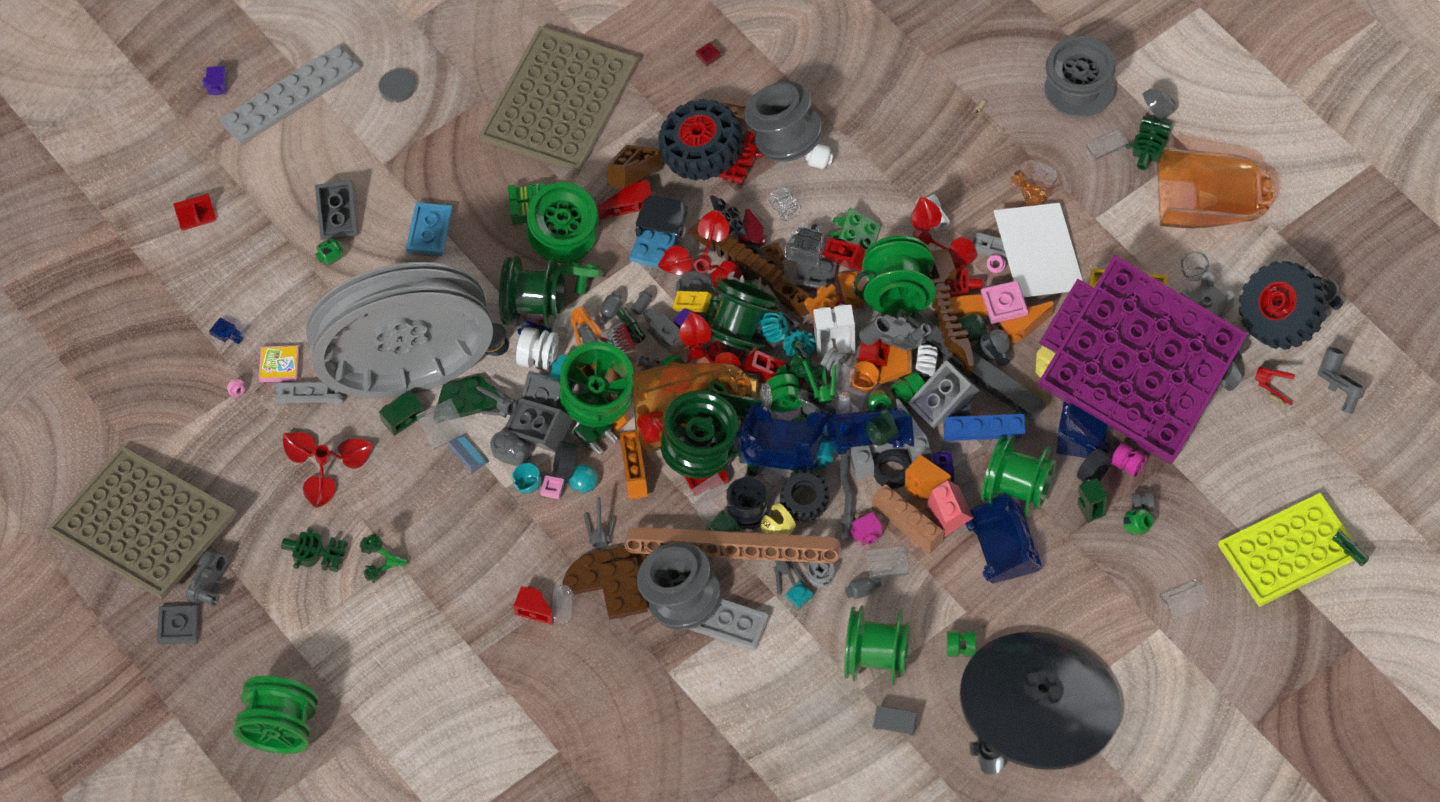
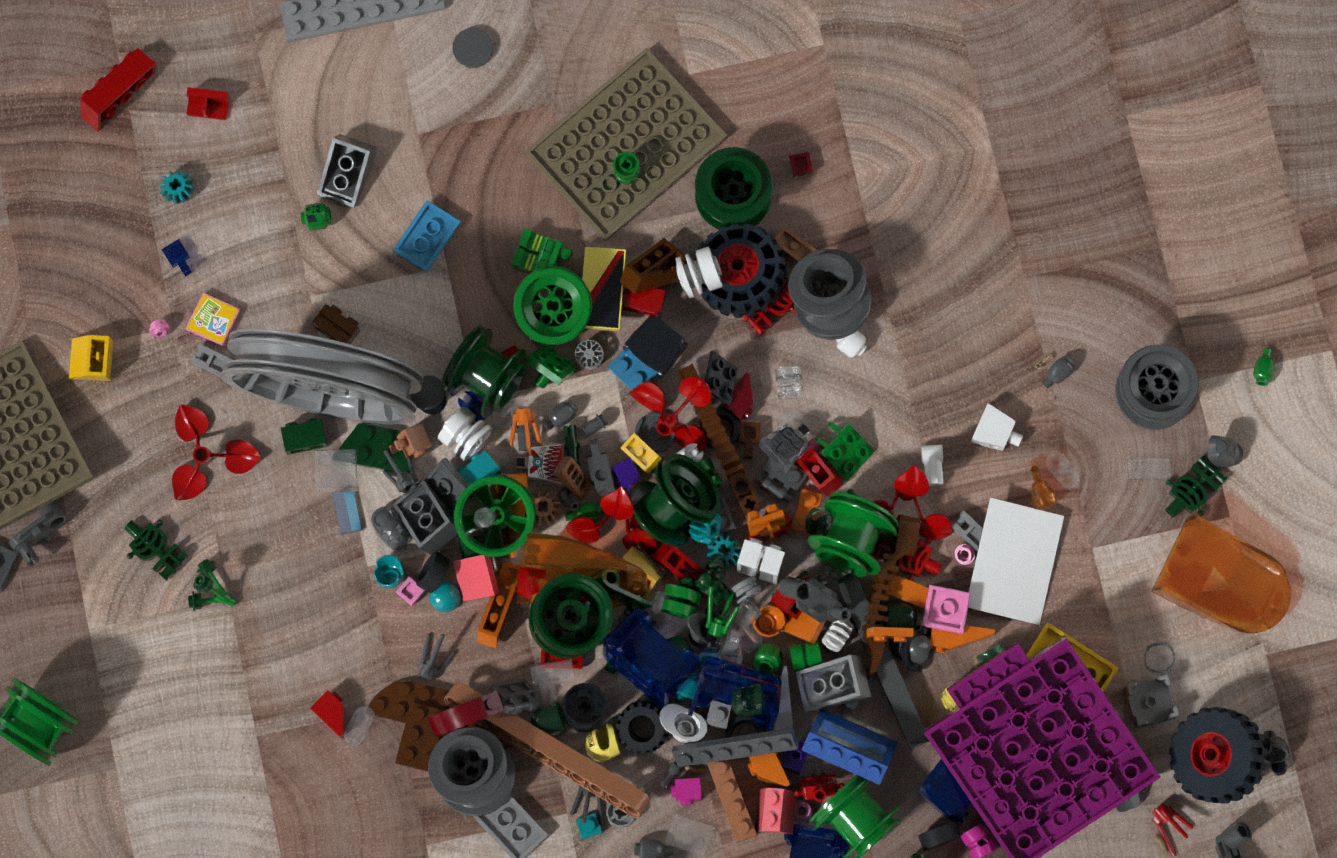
camera: 25 degrees right, 20 degrees up
(111, 232) = (115, 88): none -> red wedge
(188, 432) = (91, 358): none -> yellow slope
(199, 280) = (172, 181): none -> teal gear
(496, 375) = (412, 442): none -> nougat brick
(569, 108) = (626, 168): none -> green wheel
(589, 382) = (484, 517): none -> clear plate
(595, 183) = (602, 276): none -> tile
(603, 448) = (475, 577): none -> coral tile
(609, 256) = (589, 354): none -> light grey wheel
(644, 342) = (561, 473): none -> nougat slope
(648, 540) = (465, 713): none -> dark red arch
(653, 84) = (728, 164): none -> dark green wheel
(670, 142) = (702, 271): none -> white wheel
(685, 518) = (513, 691): none -> dark grey plate
(838, 477) = (681, 725): none -> white piece
(889, 468) = (735, 747): none -> dark grey plate
(969, 167) = (995, 430): none -> white torso
(969, 329) = (881, 633): none -> orange plate
(972, 499) = (809, 810): none -> bright pink plate
(973, 471) = (819, 786): none -> red torso
(996, 107) = (1059, 371): none -> dark grey plant
(1155, 38) = (1264, 368): none -> green plant

